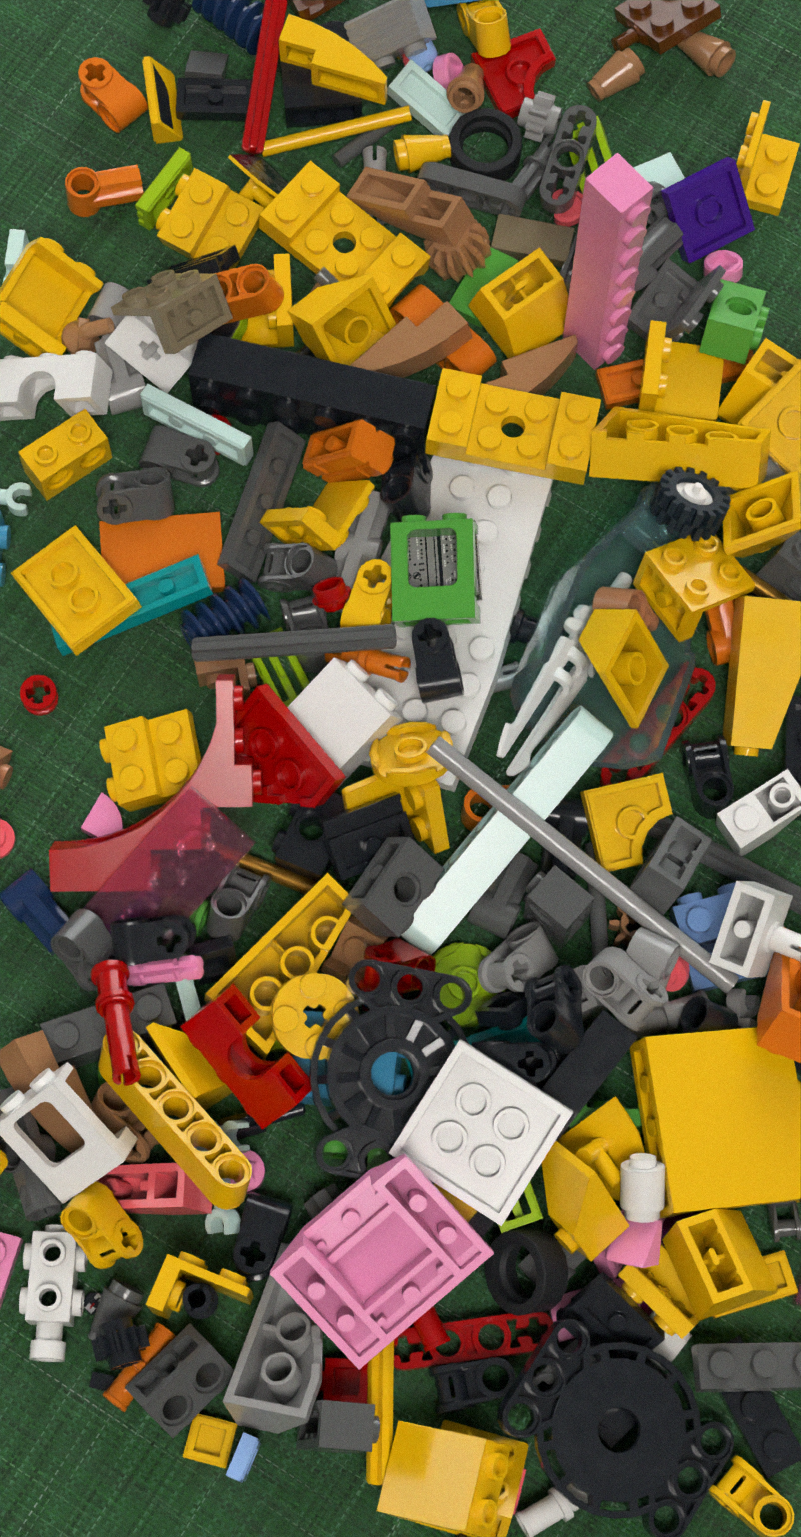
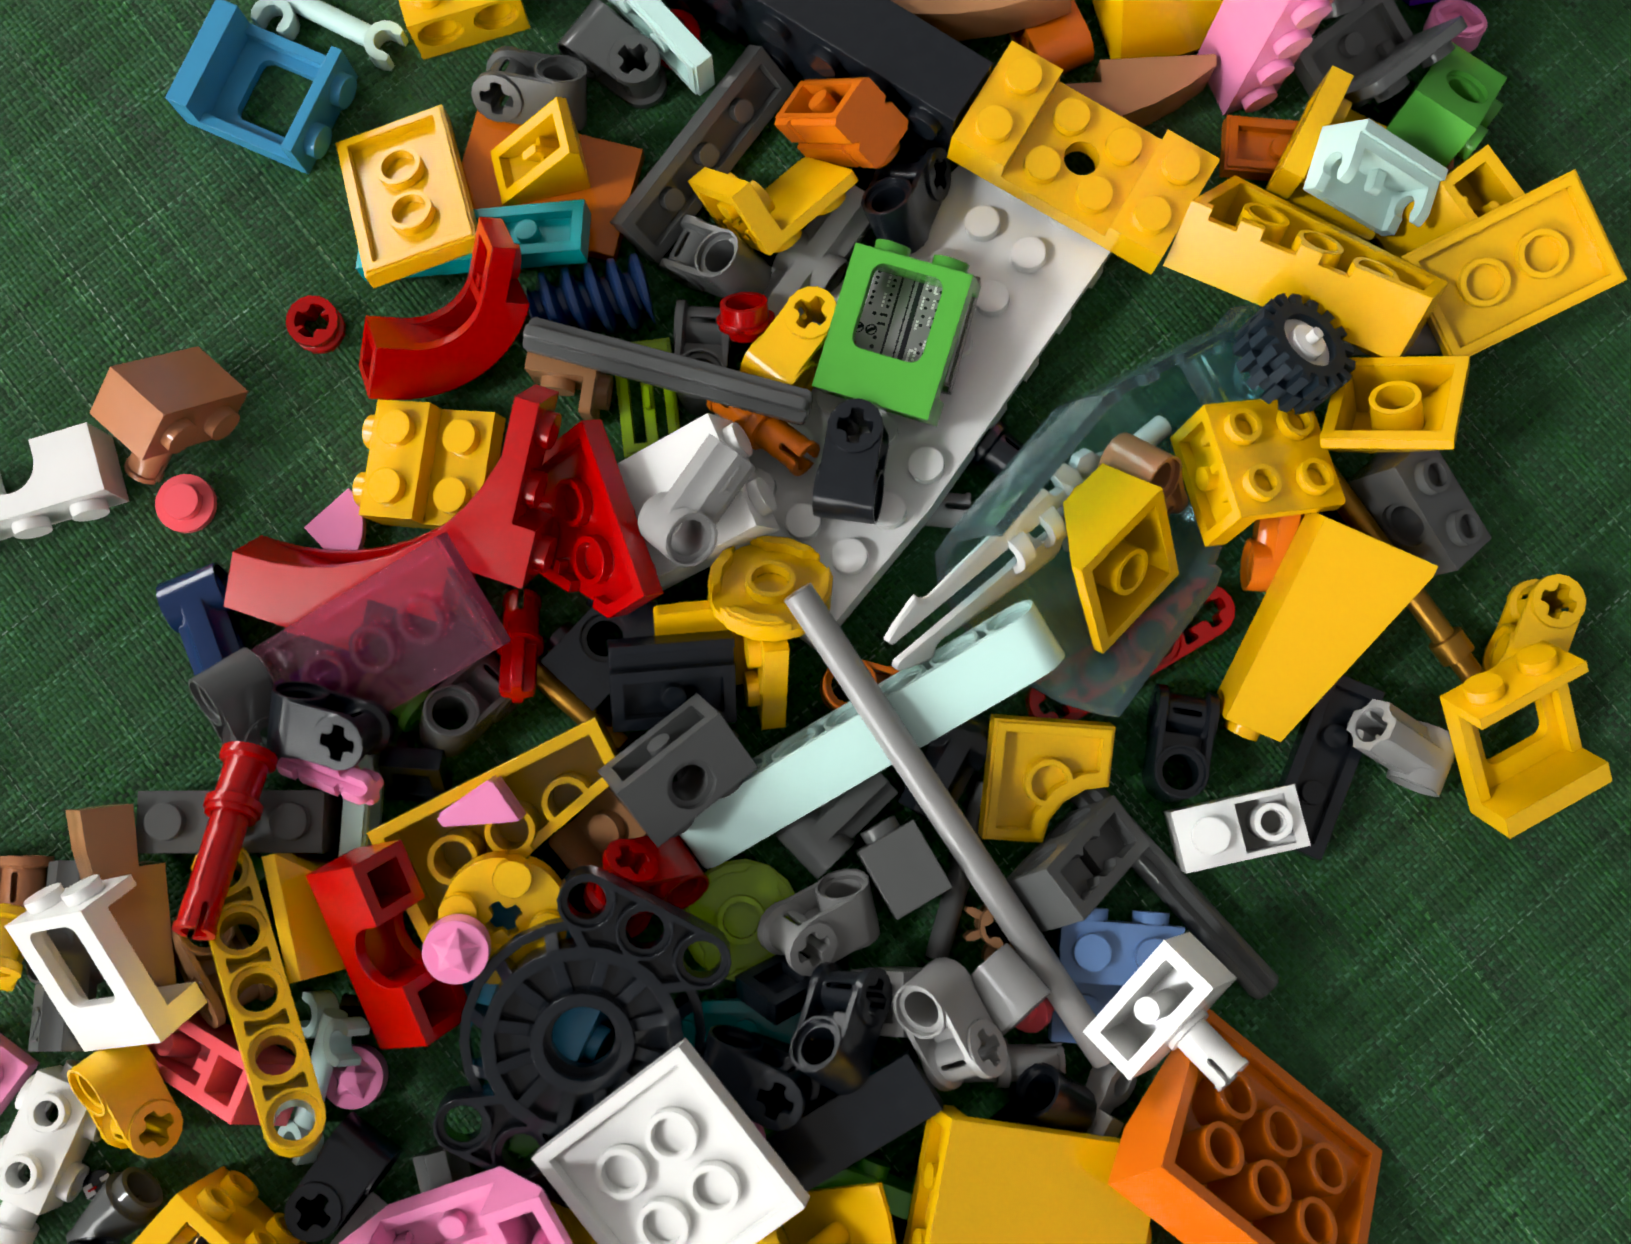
camera: 20 degrees right, 10 degrees up
(145, 670) = (458, 341): none -> red arch
(158, 537) = (541, 157): none -> yellow slope
(259, 856) = (520, 655): none -> red axle
(279, 944) = (484, 805): none -> bright pink slope
(294, 1039) = (456, 949): none -> bright pink tile
(346, 723) = (697, 502): none -> light grey piece
(701, 380) = (1373, 175): none -> light aqua hinge

